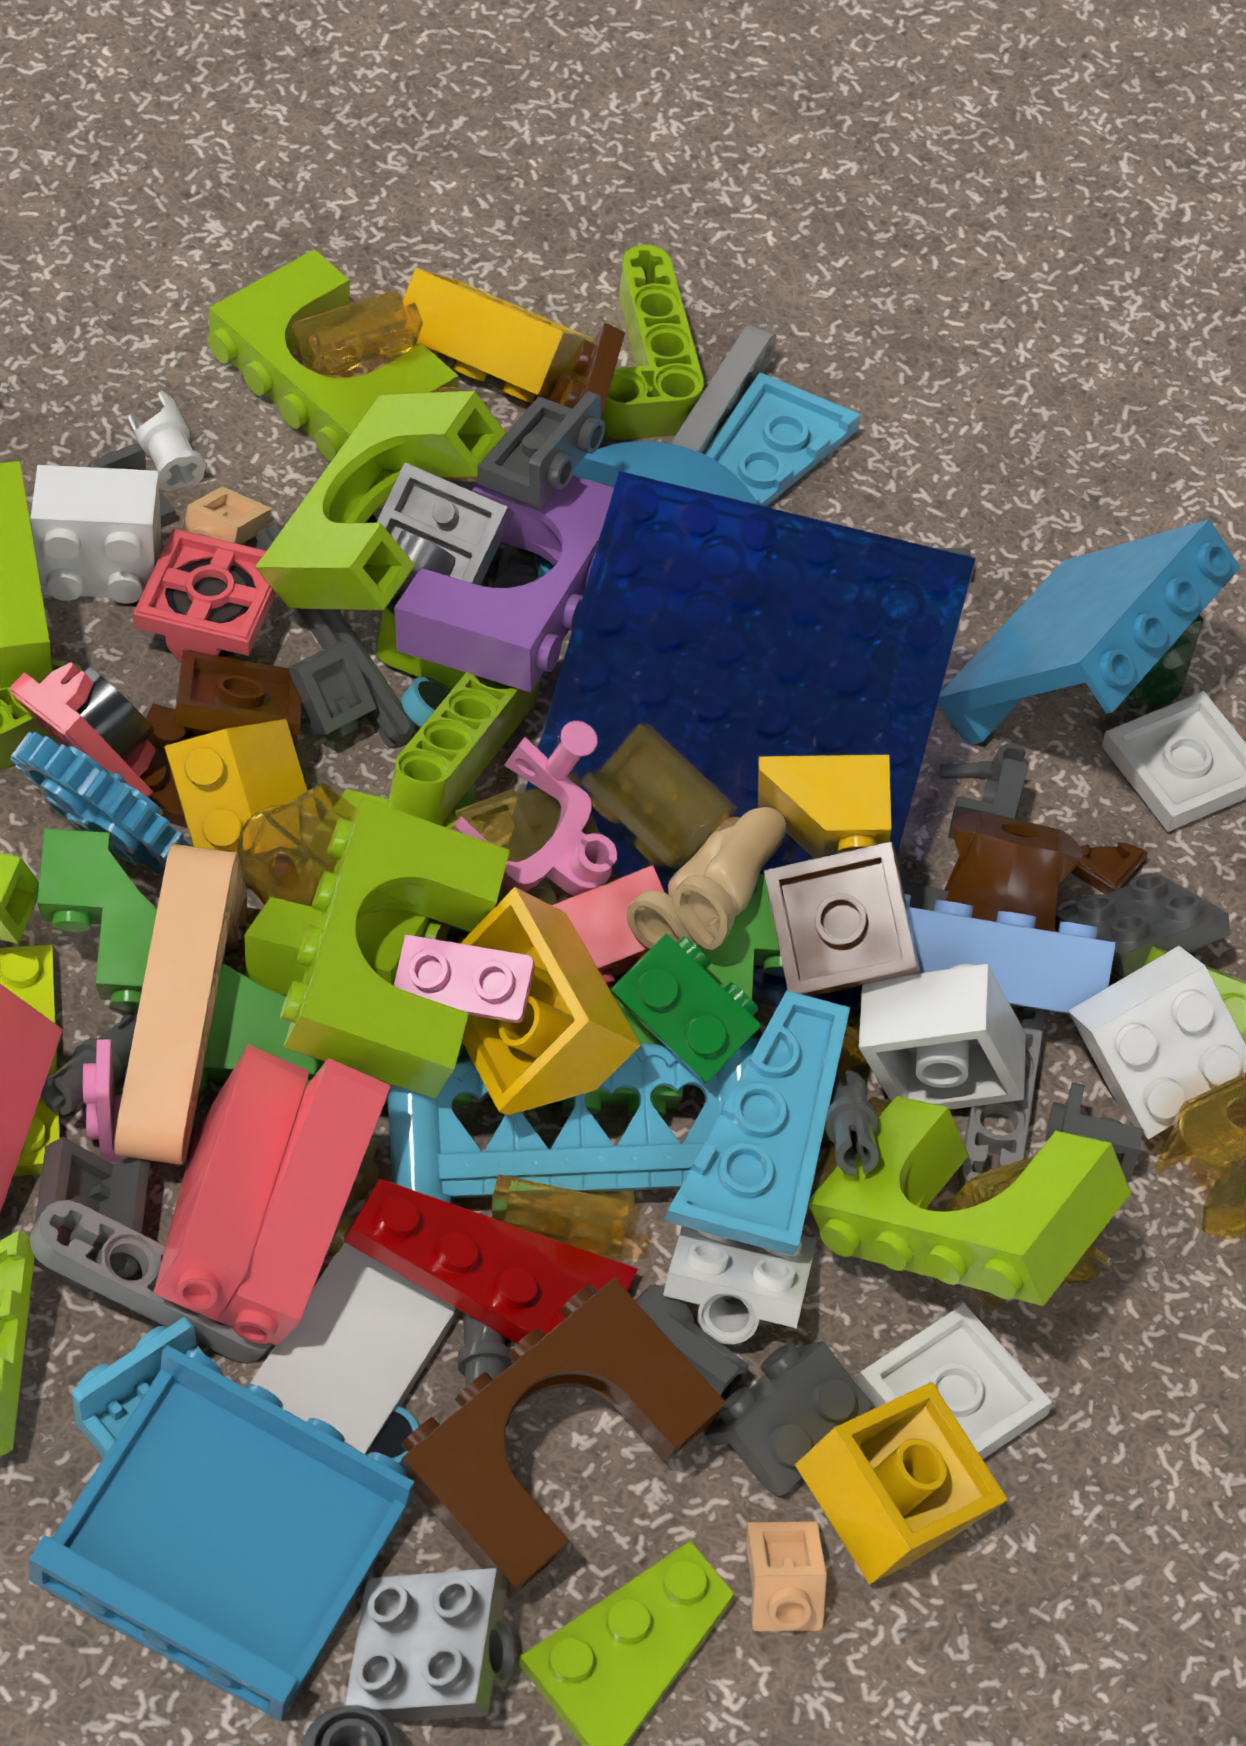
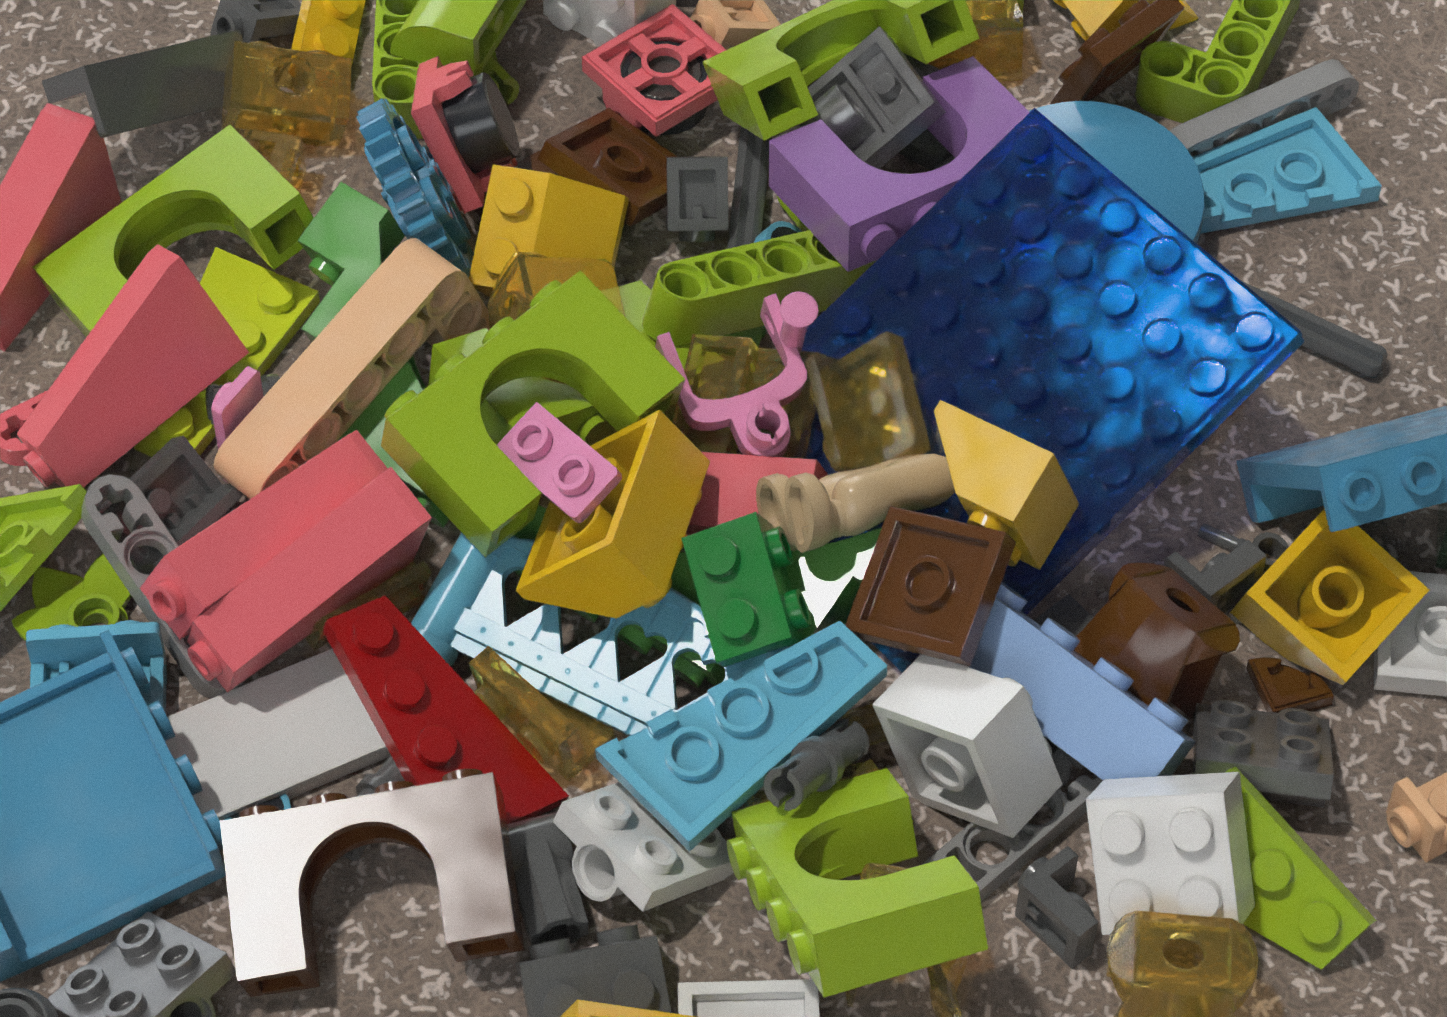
camera: 40 degrees right, 0 degrees up
(61, 1347) = (74, 599): none -> lime plate
(543, 449) = (1001, 66): dark grey bracket -> none
(1097, 772) = (1330, 600): none -> yellow slope

